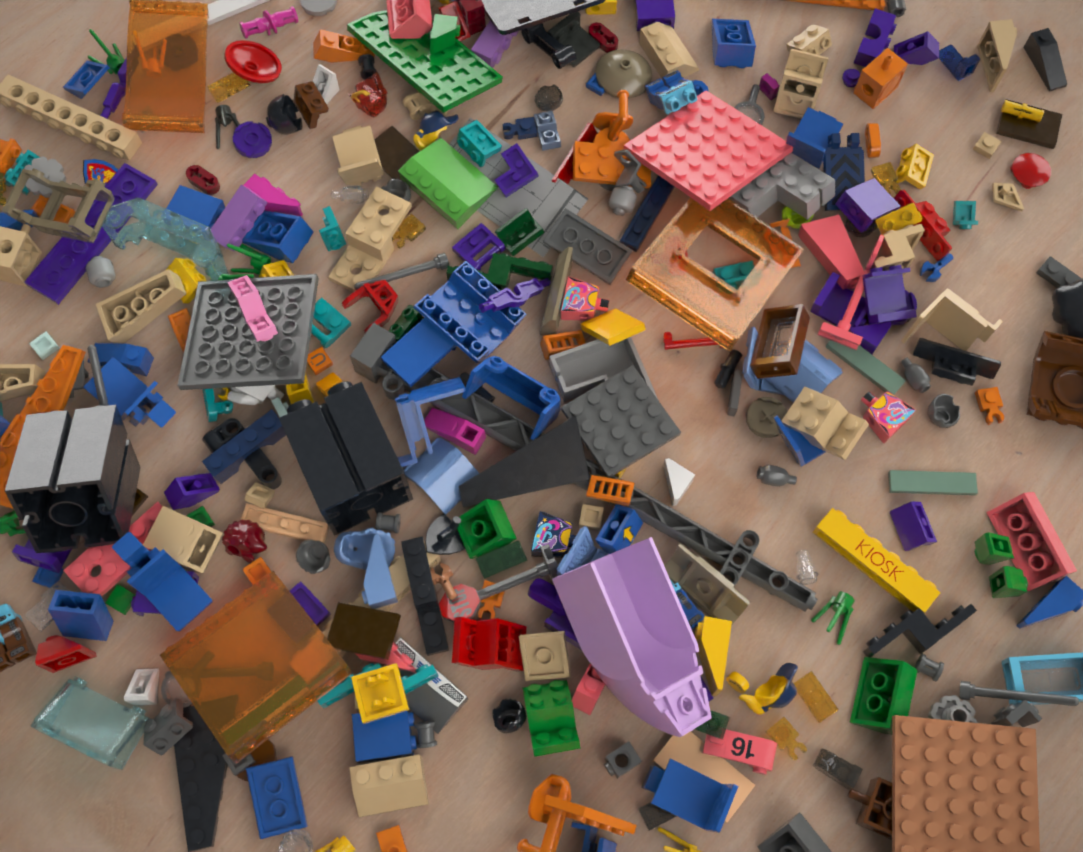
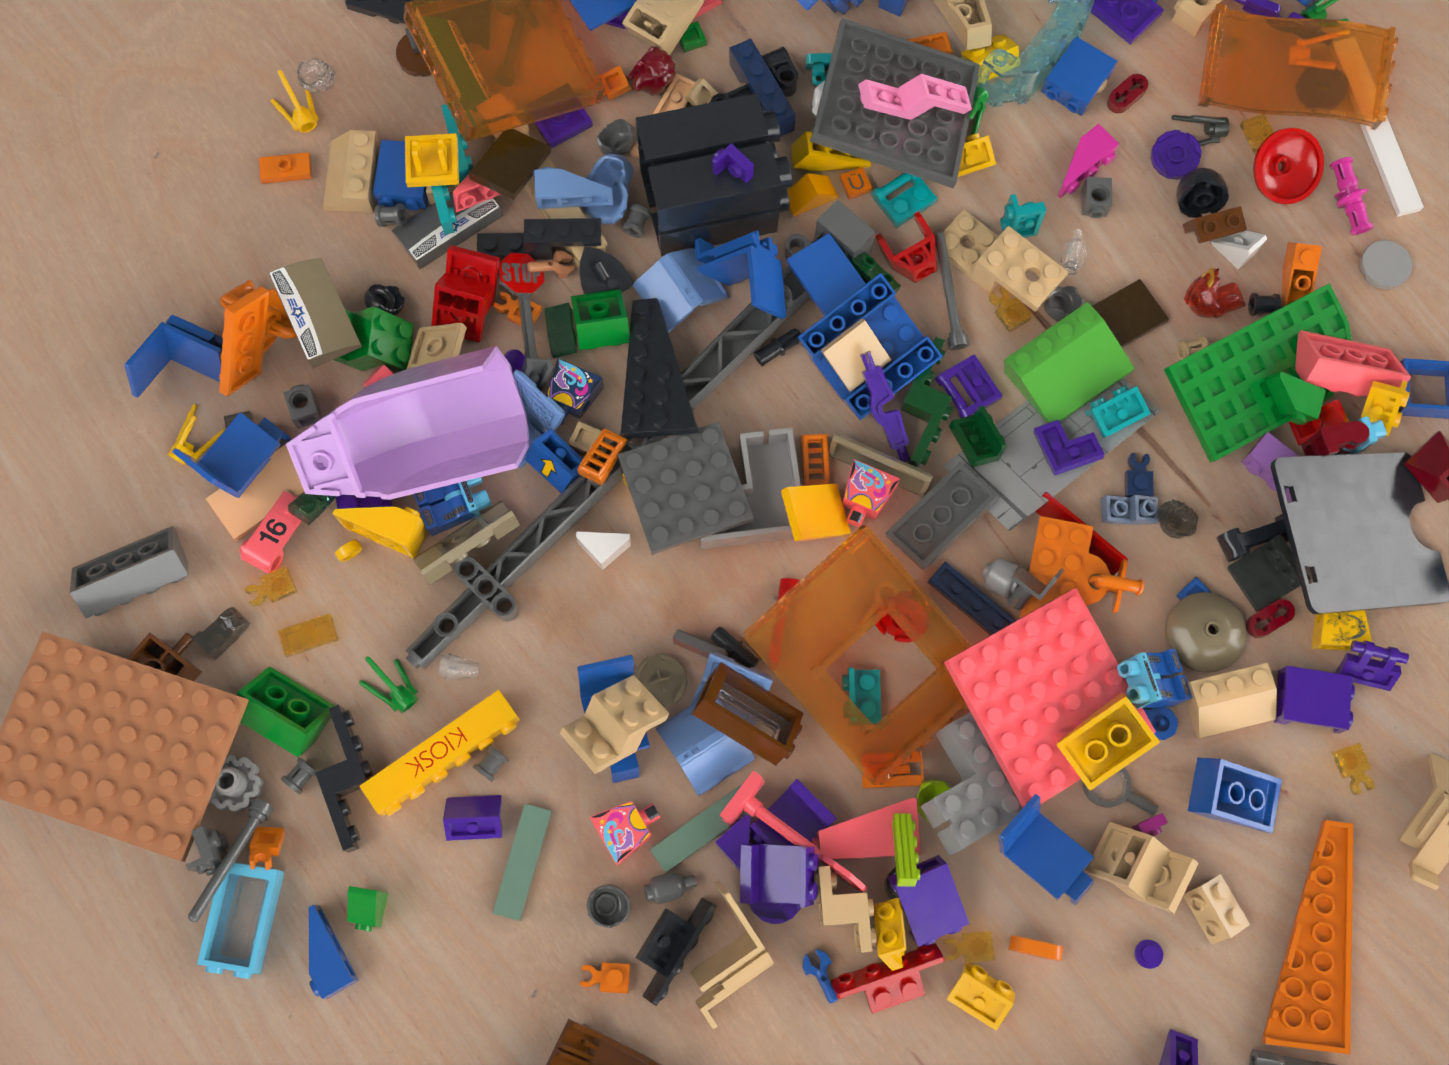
camera: 100 degrees right, 5 degrees up
(190, 490) = (724, 28): dark purple slope -> none
(238, 217) = (1058, 116): medium lavender brick -> none
(257, 259) = (999, 136): green plant -> none
(276, 797) = (373, 67): blue tile -> none
(279, 235) = (1030, 162): blue slope -> none
(280, 407) = (797, 129): light aqua plate -> none
(297, 179) = (1099, 188): none -> dark grey brick
(353, 414) = (735, 161): none -> dark purple bracket
(358, 156) = (1124, 263): tan piece -> none
(430, 128) = (1152, 361): dark blue hair -> none
(455, 430) = (723, 310): dark pink slope -> none
(482, 325) = (845, 353): none -> tan tile
(519, 387) = (737, 411): blue windscreen -> none
(545, 759) = (315, 311): none -> dark tan slope
(729, 106) = (1107, 741): none -> yellow slope
(775, 476) = (579, 657): dark grey plant -> none
(775, 692) = (323, 584): hair -> none
(843, 165) = (990, 881): dark blue tile -> none
(844, 218) = (904, 850): none -> lime piece
(871, 522) = (490, 763): none -> dark grey bush
(879, 28) = (1185, 996): dark purple arch -> none
(880, 78) = (1132, 987): orange piece -> none
(964, 214) = (890, 1041): teal bracket -> none
(991, 676) = (264, 844): none -> orange plate
(993, 549) = (410, 900): green slope -> none
(1032, 540) = (411, 960): coral slope -> none

